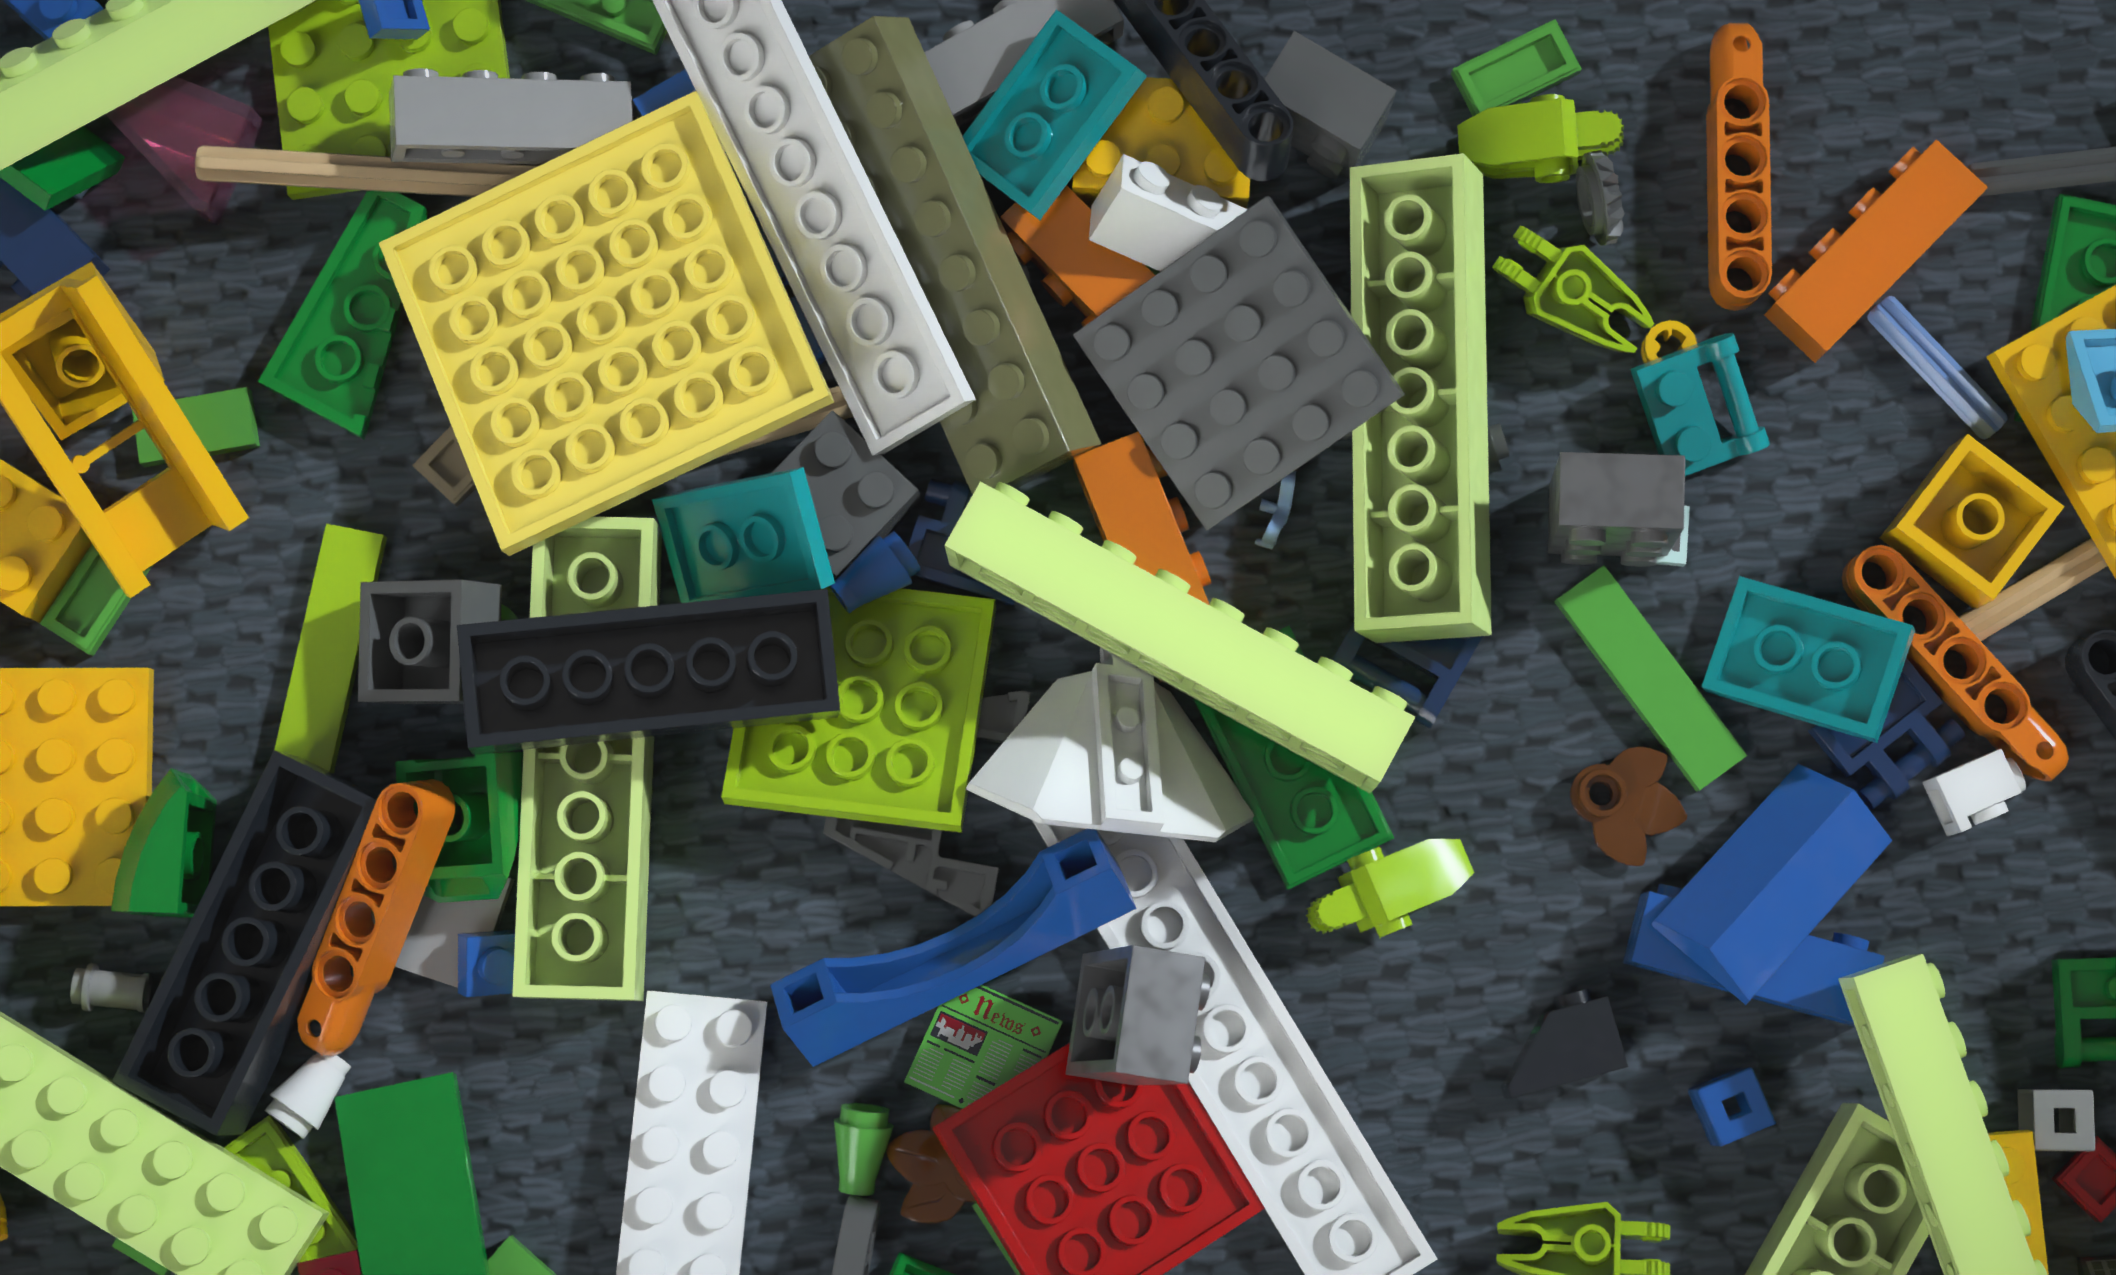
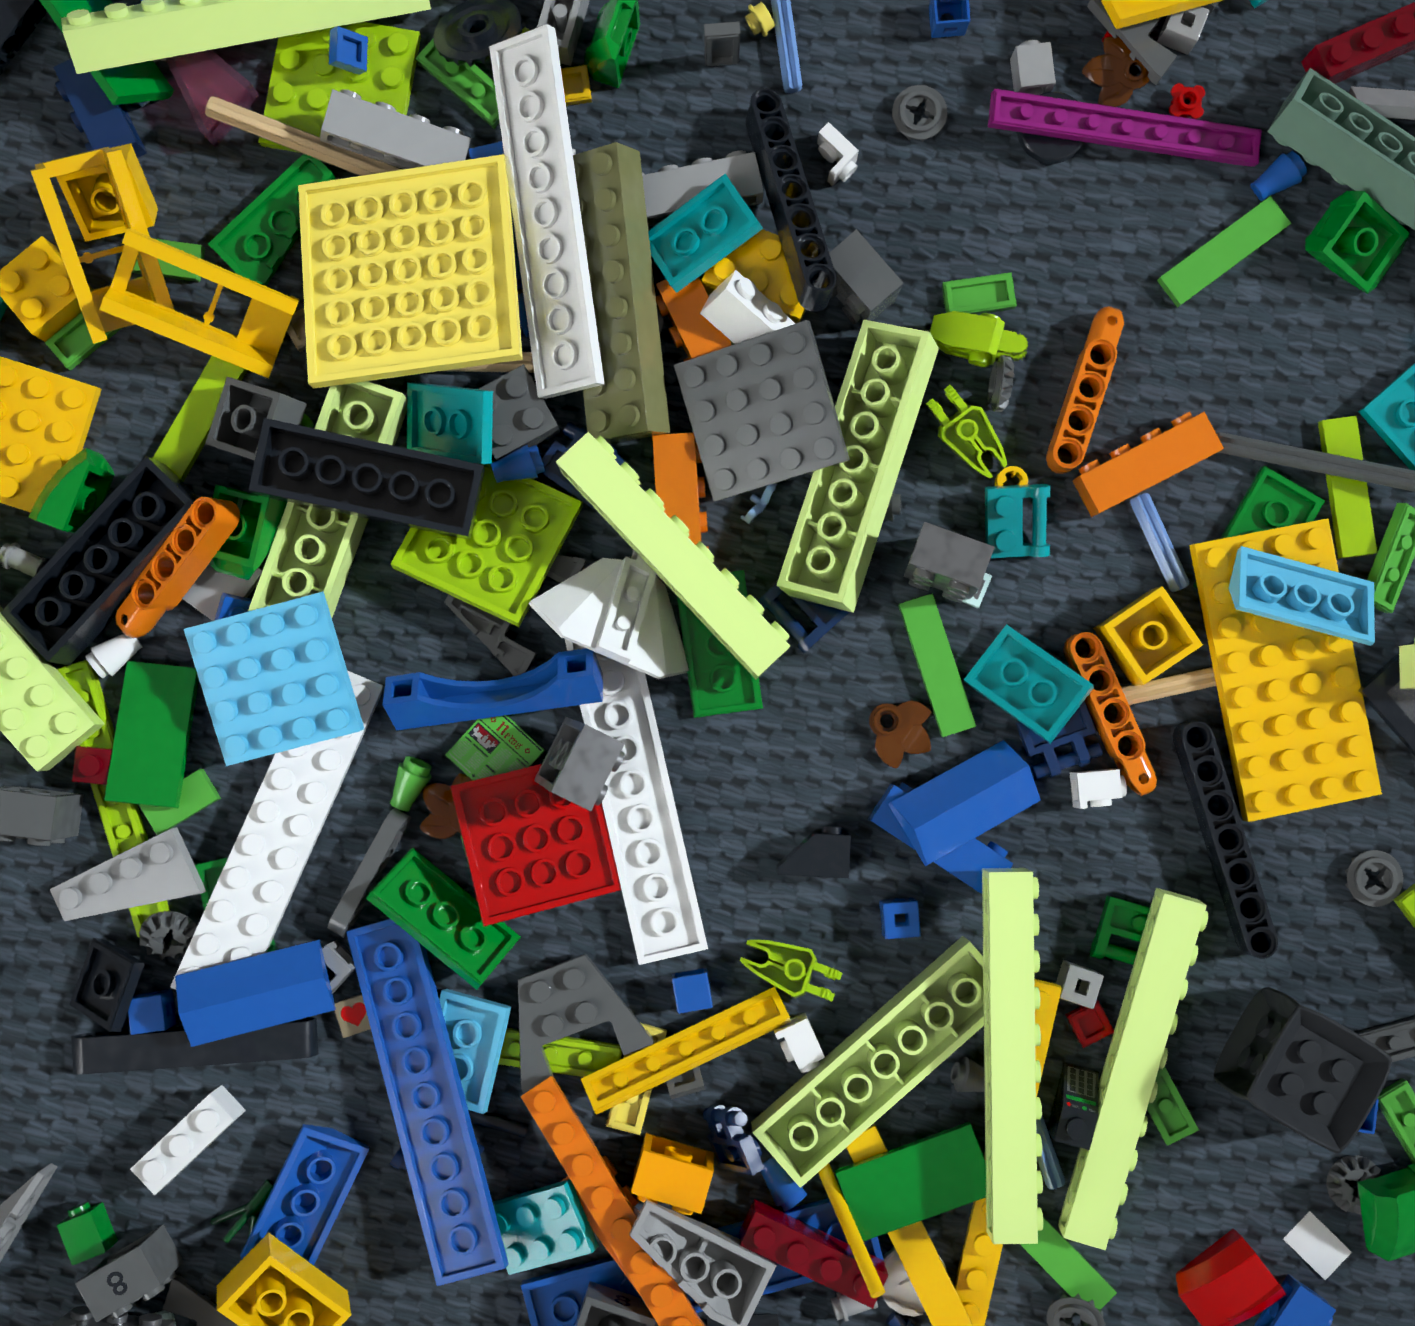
camera: 15 degrees right, 5 degrees up
(386, 497) = (262, 326): none -> yellow piece
(593, 1044) = (274, 678): none -> medium azure plate
(1387, 888) = (752, 735): lime hinge -> none

